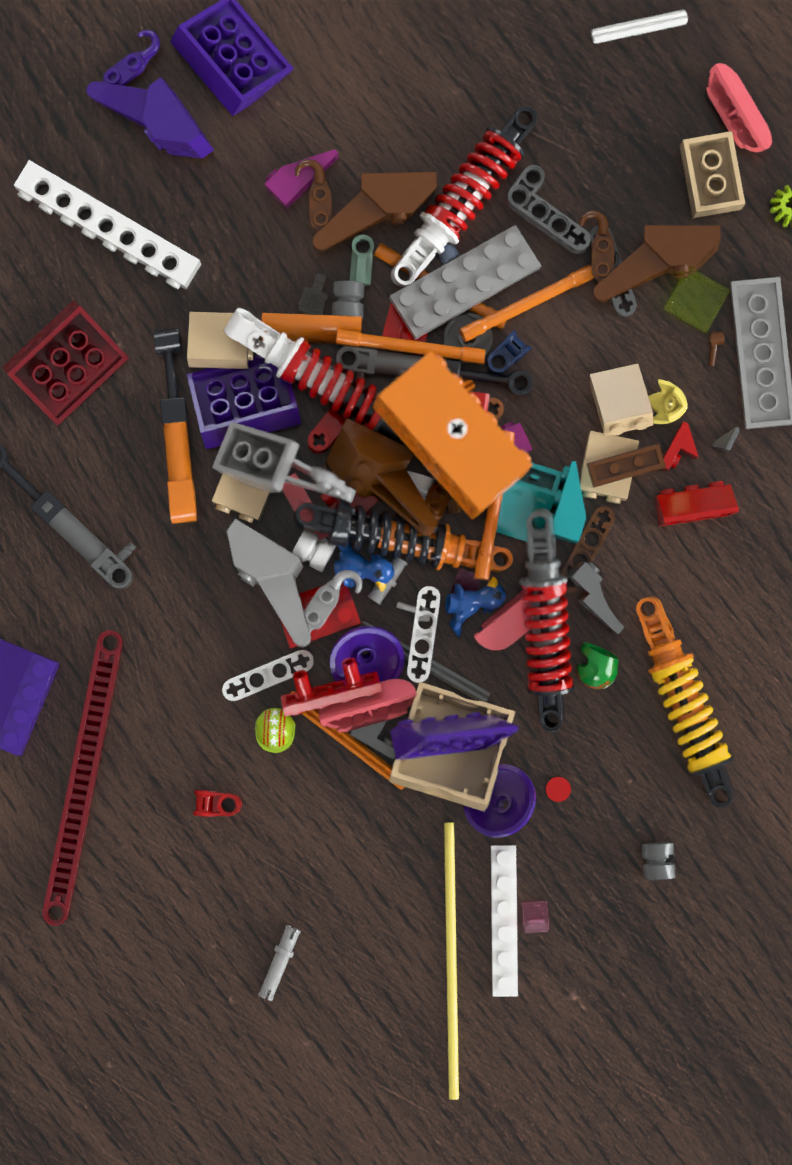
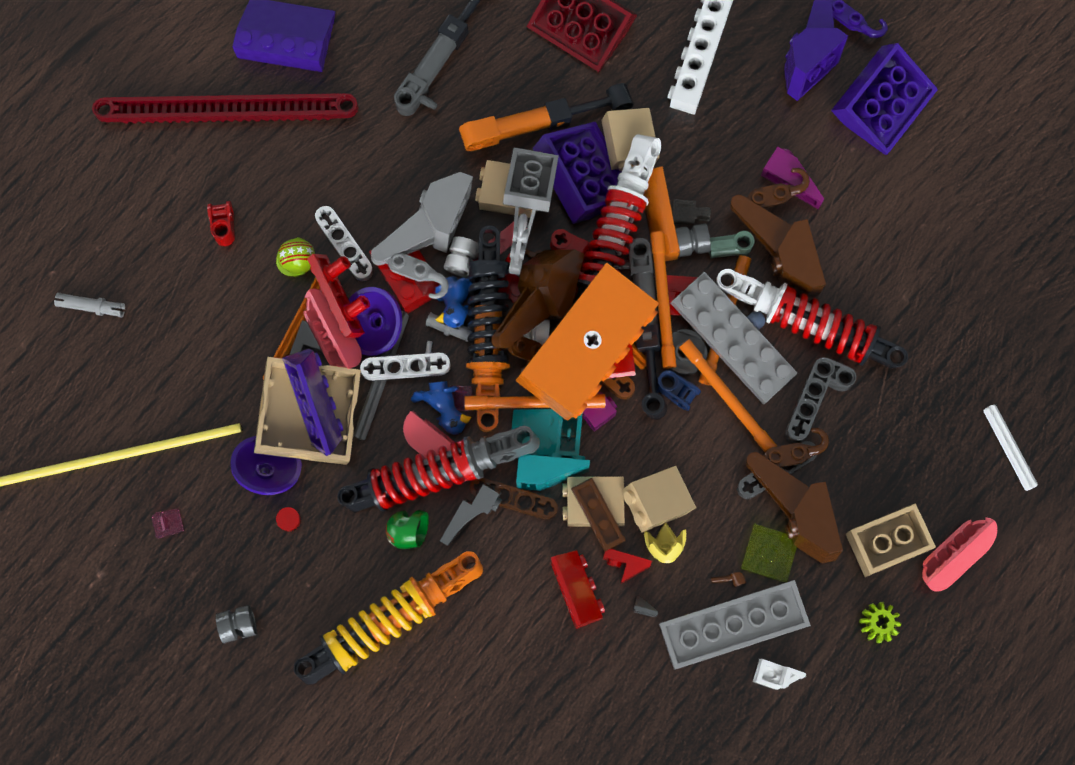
camera: 85 degrees right, 10 degrees down
(504, 920) = (159, 495): white plate -> none

